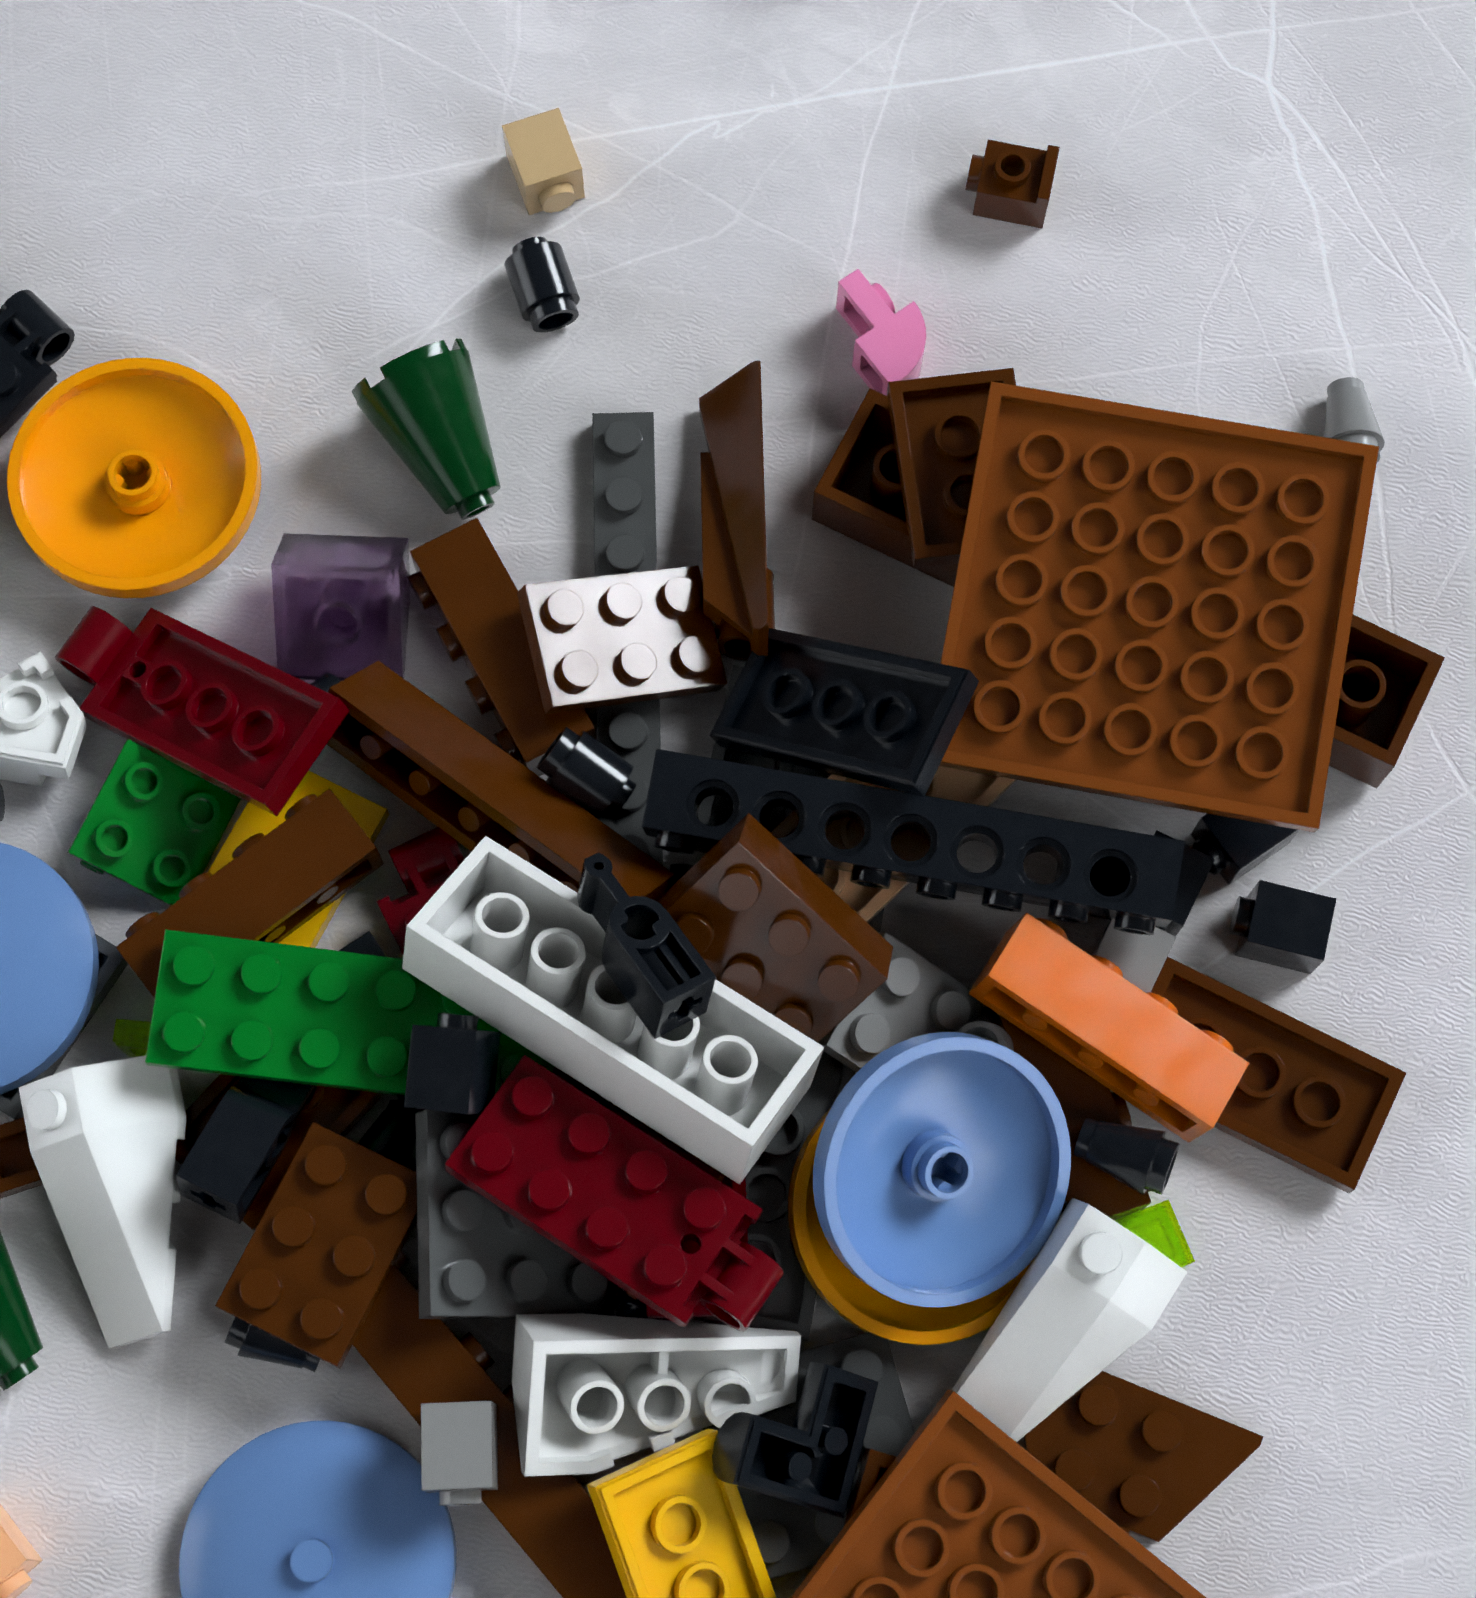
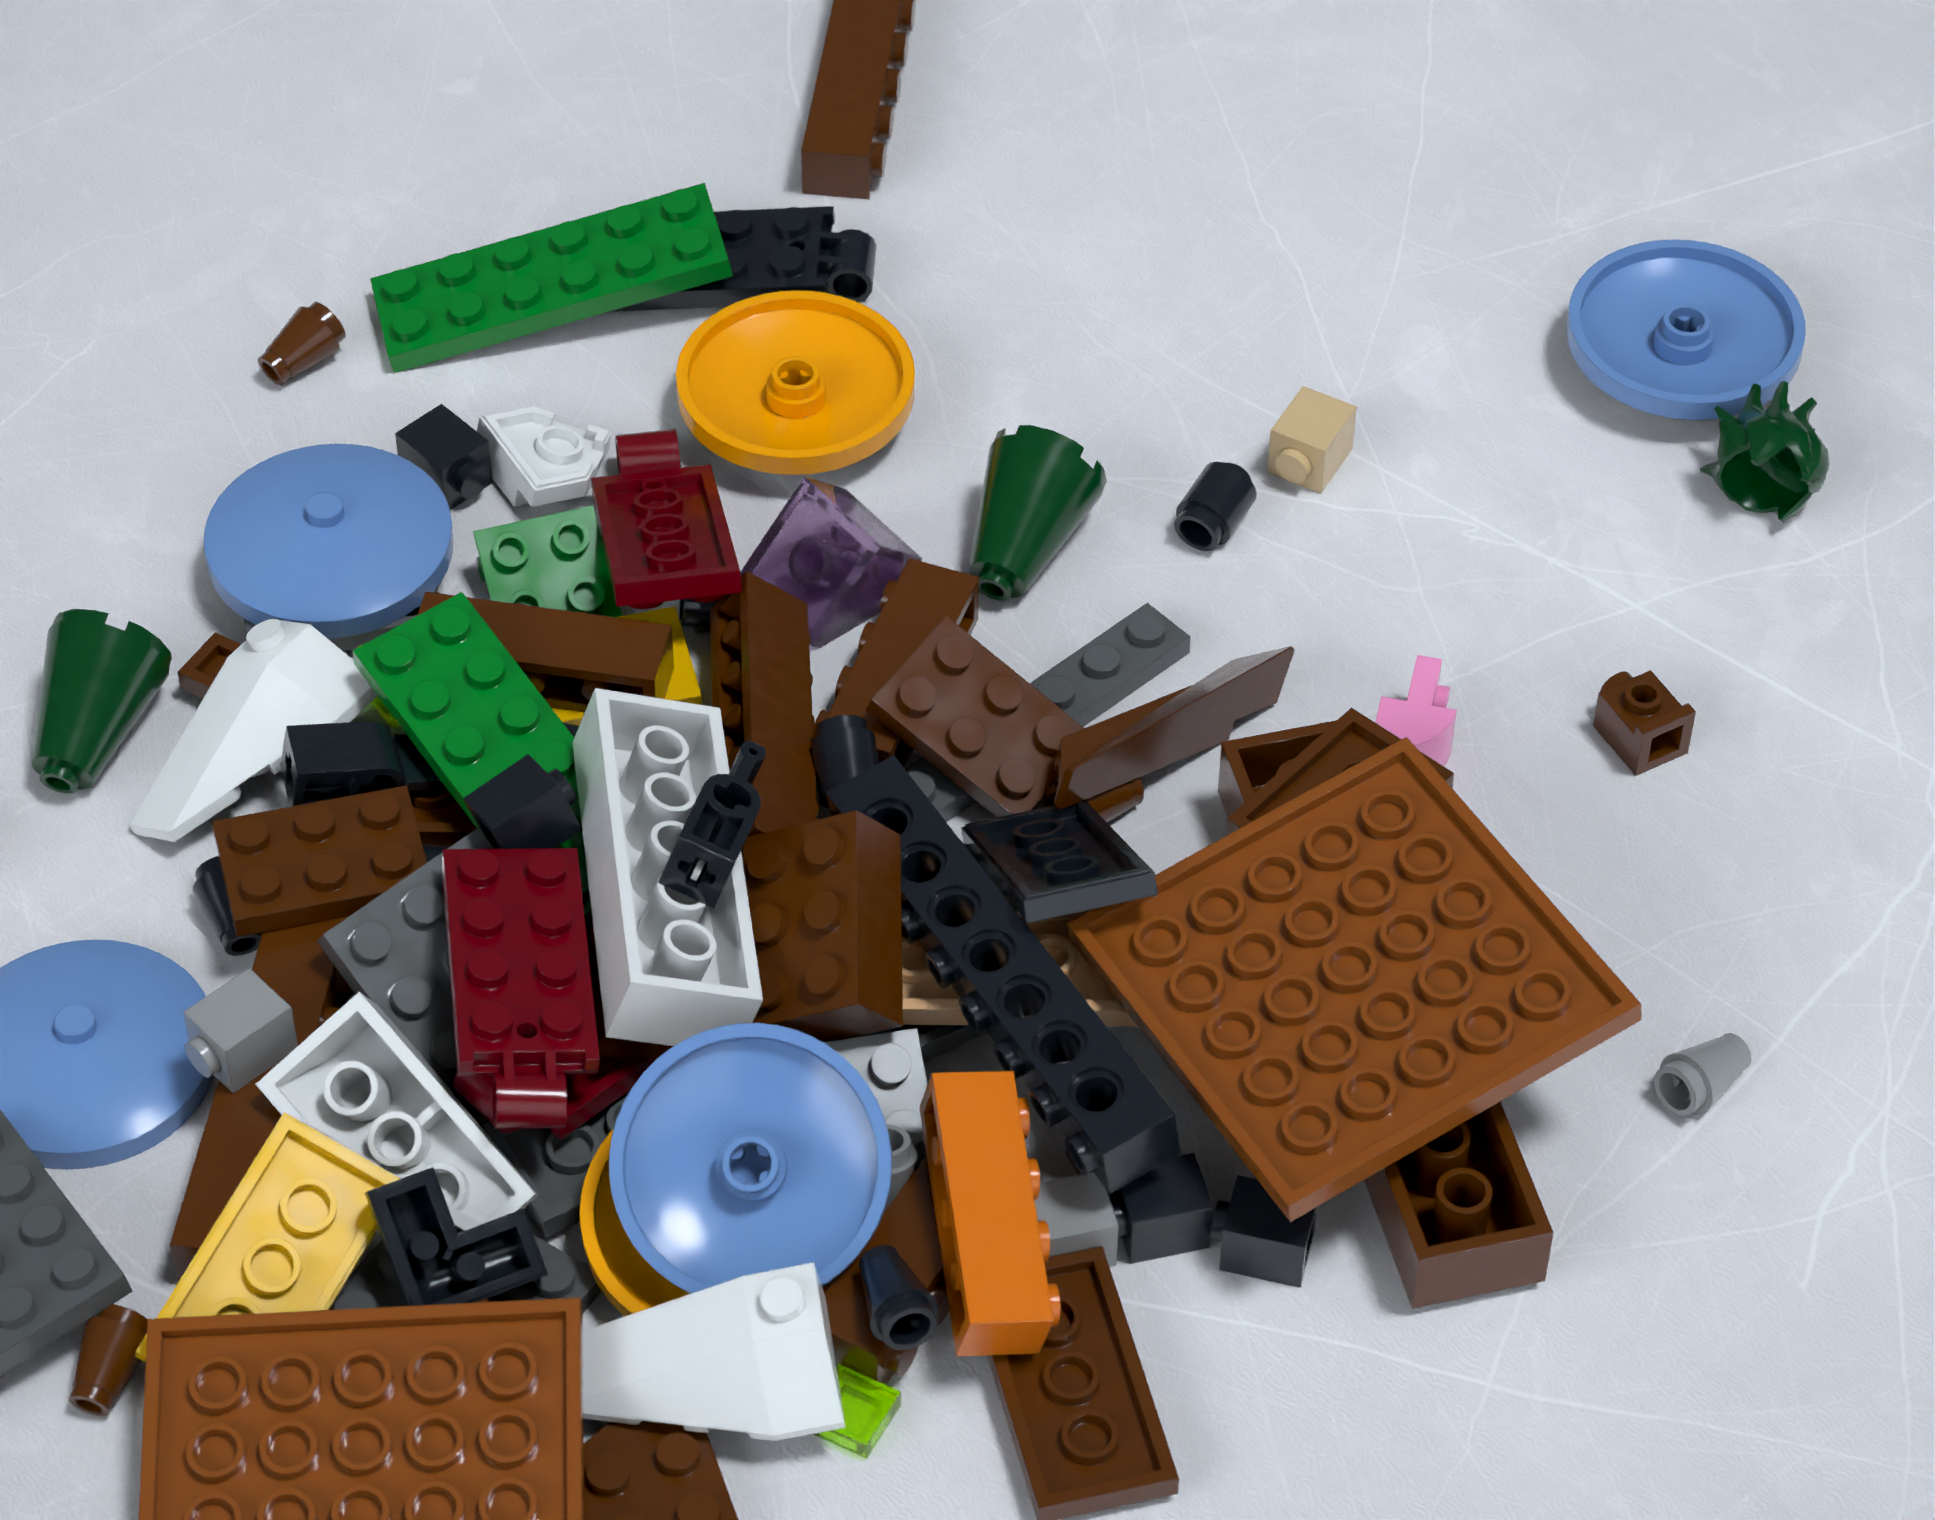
camera: 50 degrees right, 25 degrees down
(1283, 926) = (1215, 1313): black brick -> none

